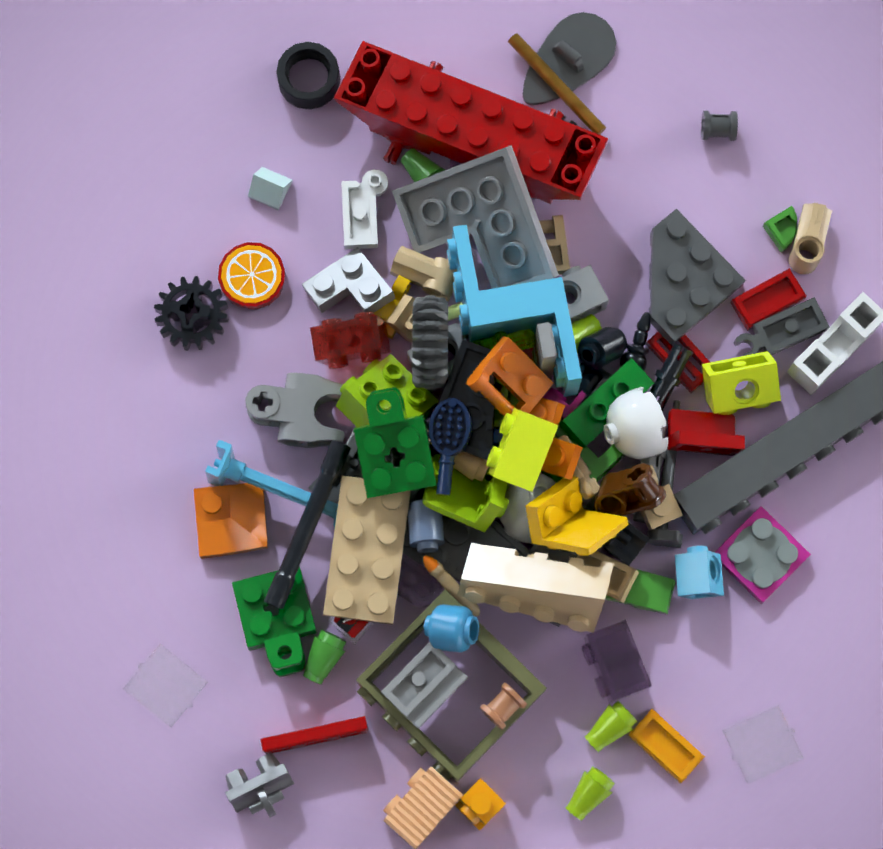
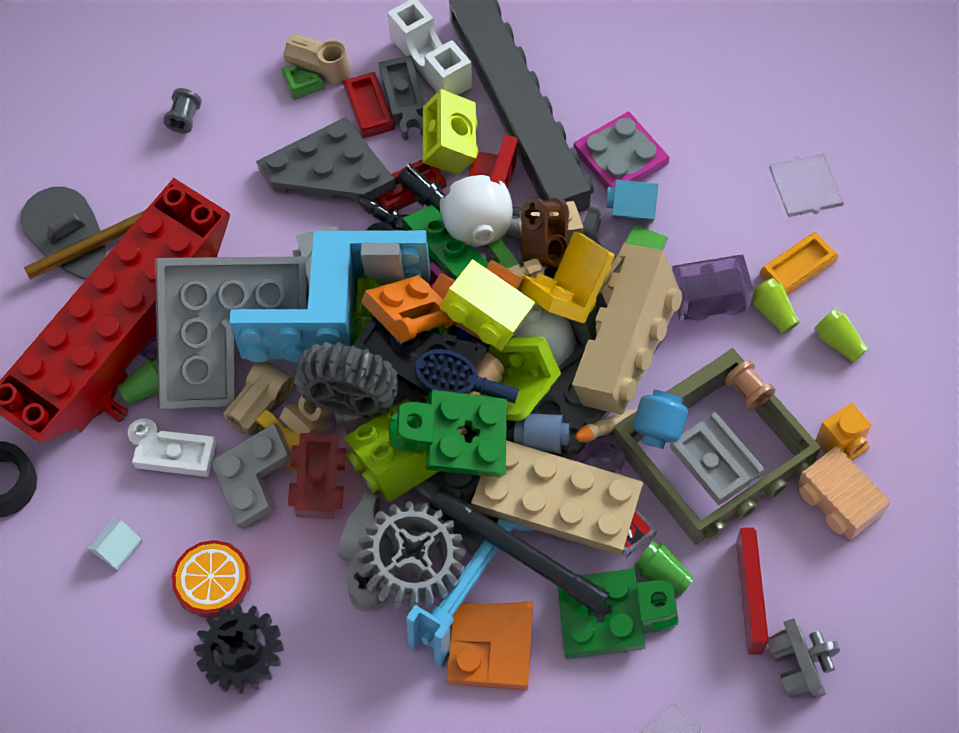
camera: 75 degrees left, 15 degrees down
(260, 414) = (401, 541): none -> light grey gear

